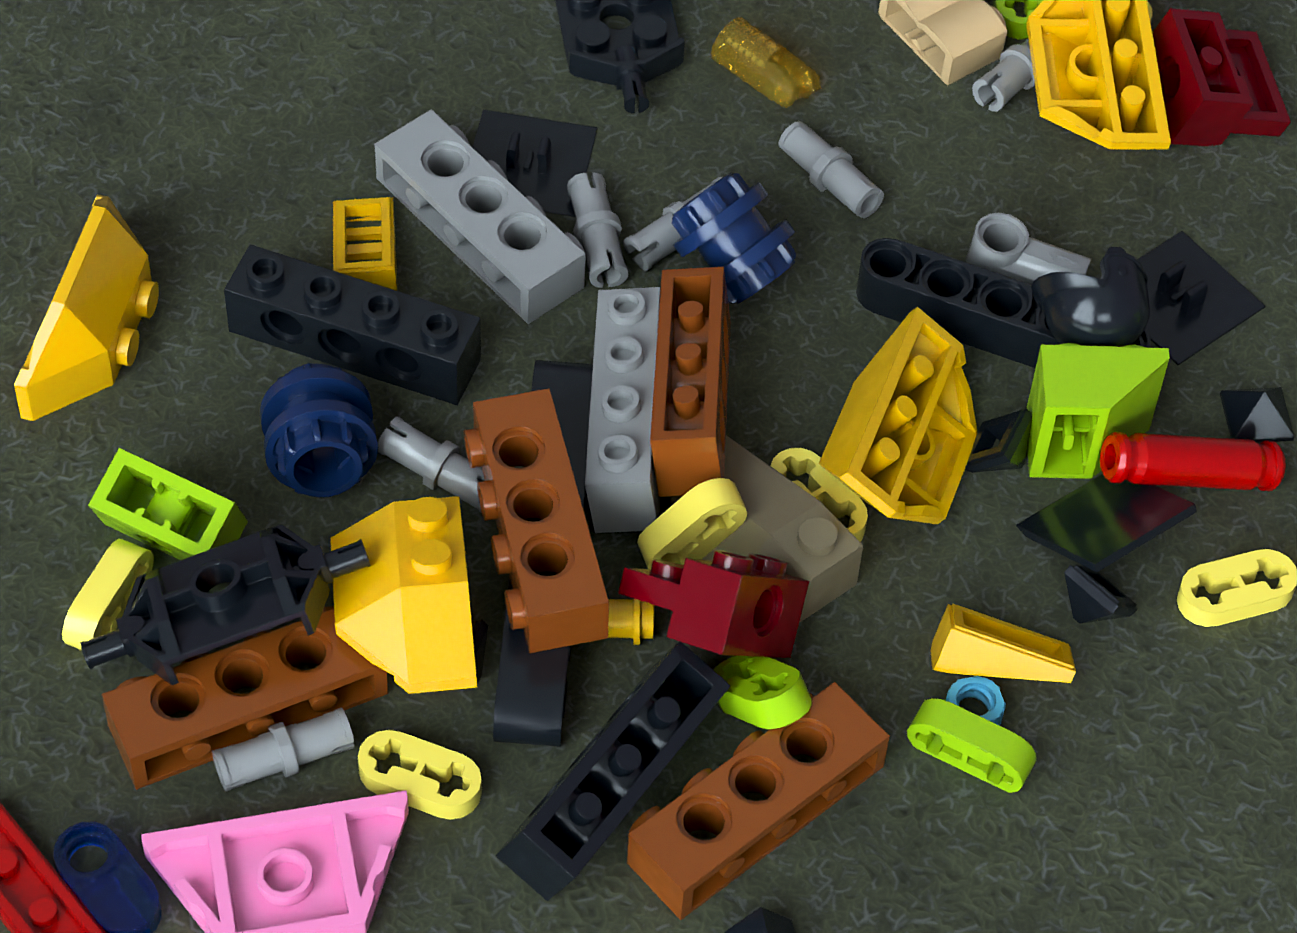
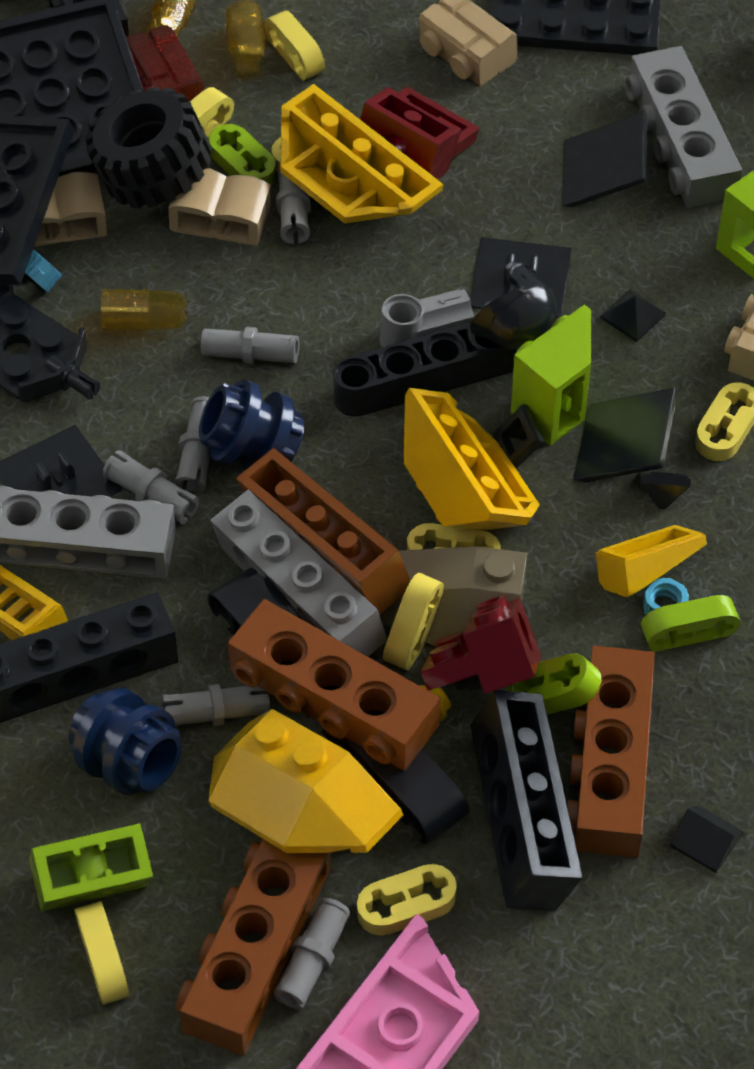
camera: 40 degrees left, 0 degrees up
(272, 582) = (183, 928): black plate -> none
(1192, 461) = (639, 366): red axle -> none

